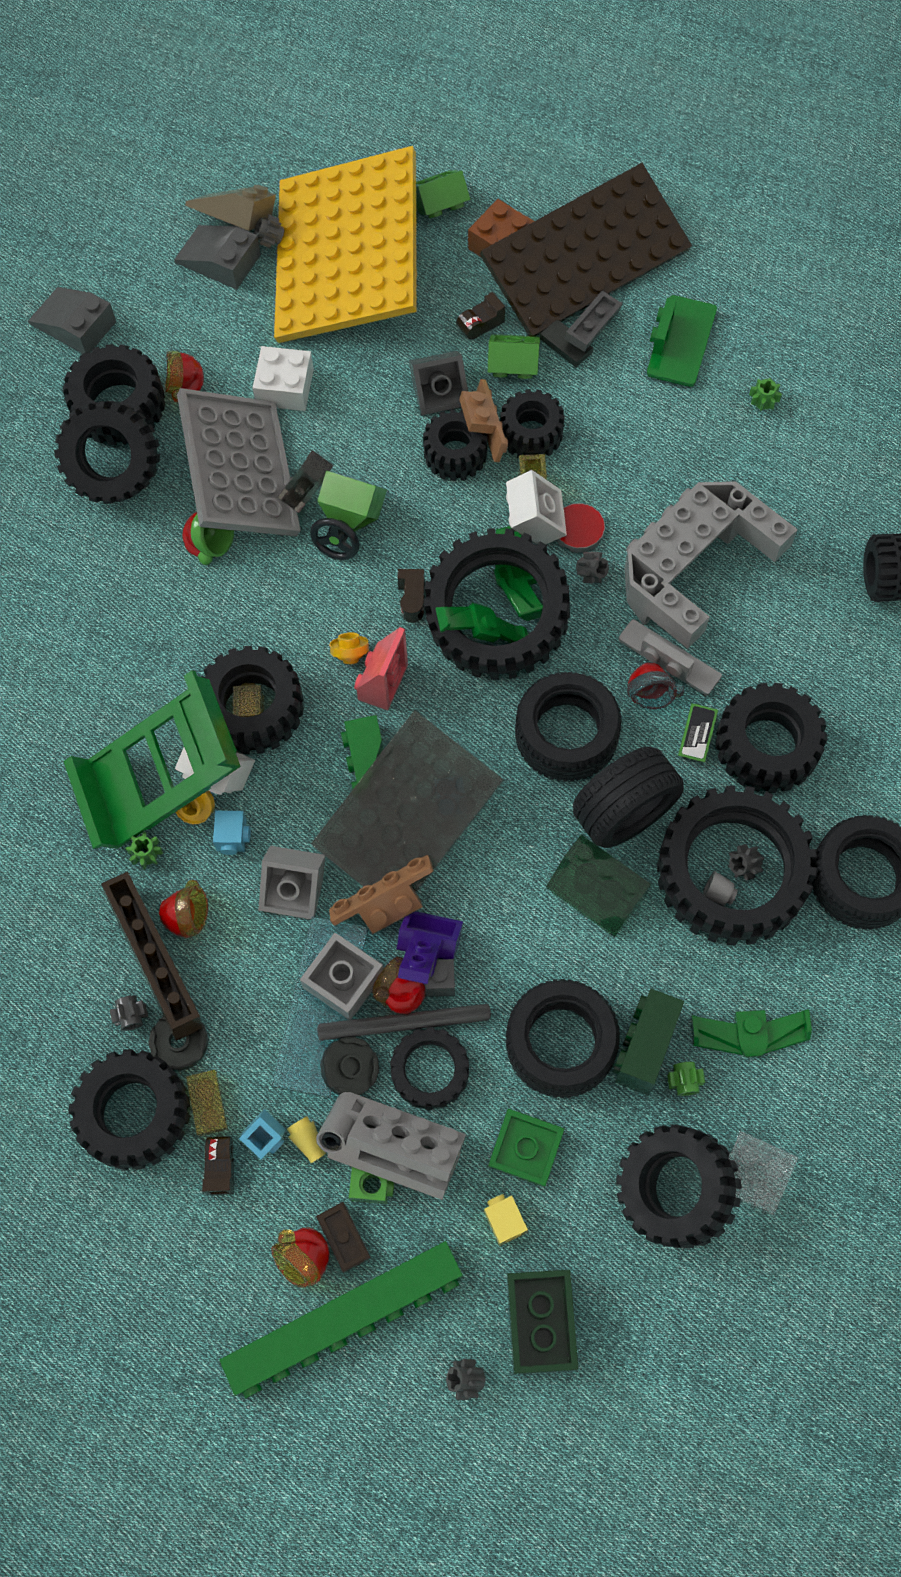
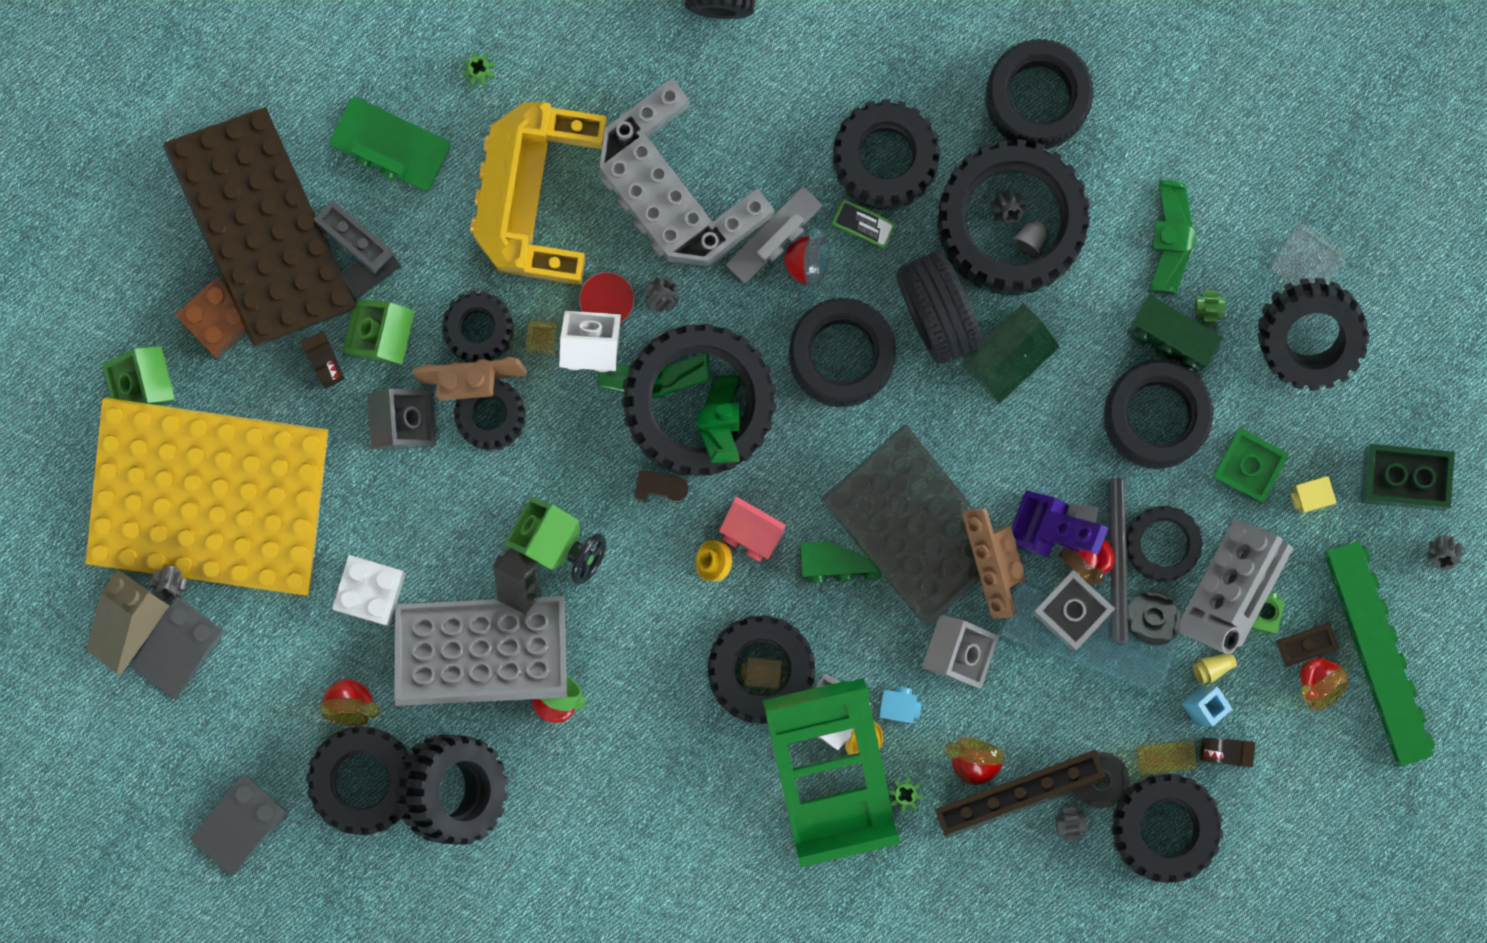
camera: 85 degrees left, 15 degrees up
(663, 432) = (513, 187): none -> yellow wedge

